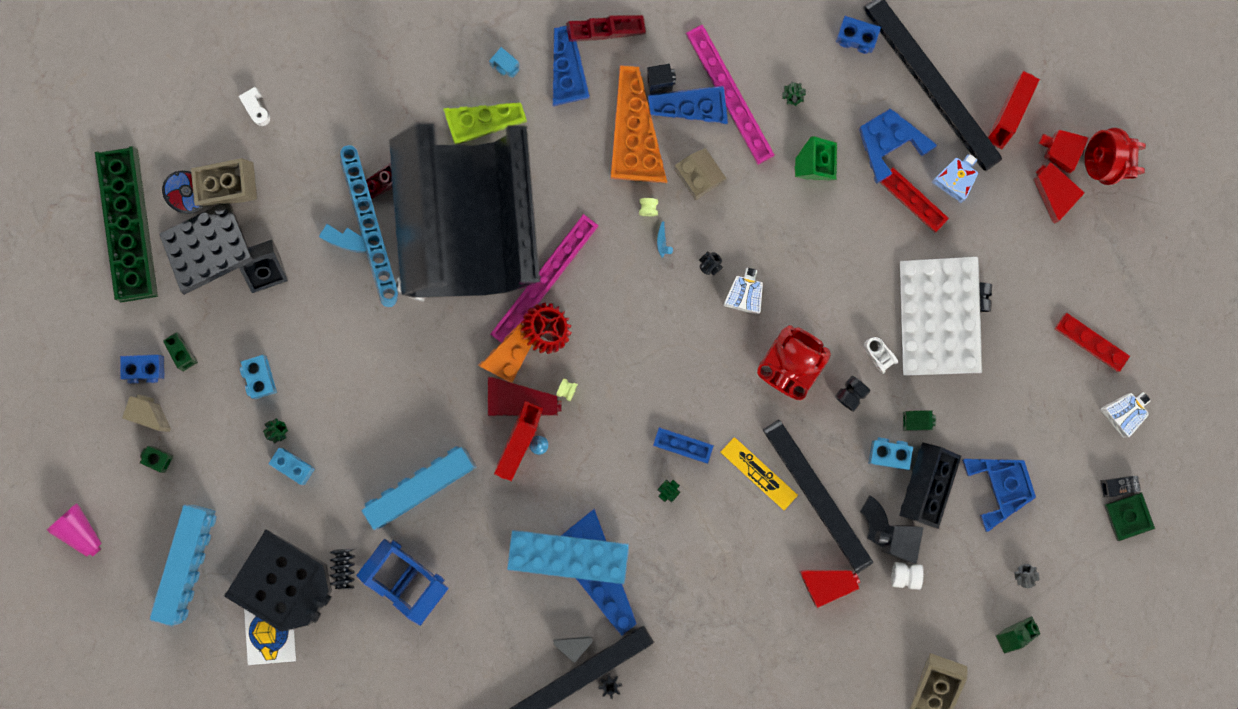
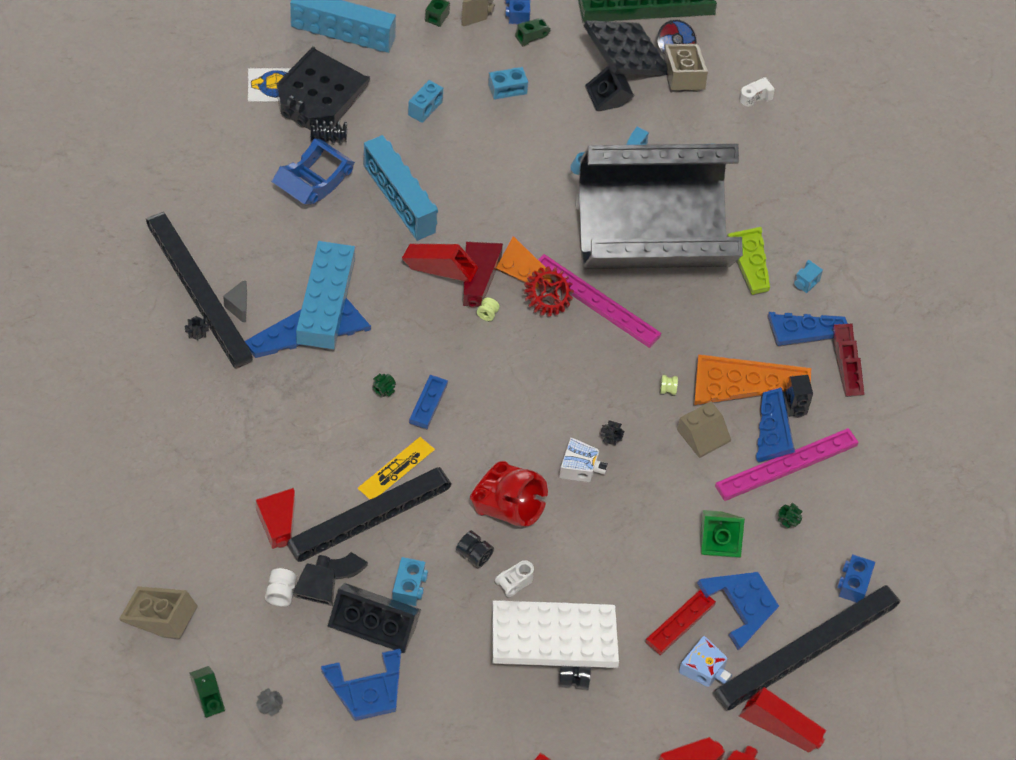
camera: 85 degrees right, 30 degrees down
(275, 430) = (463, 93): dark green gear -> none
(539, 445) = (435, 286): dark azure plate -> none
(661, 242) = (636, 397): dark azure bar -> none
(918, 420) = (443, 607): dark green slope -> none

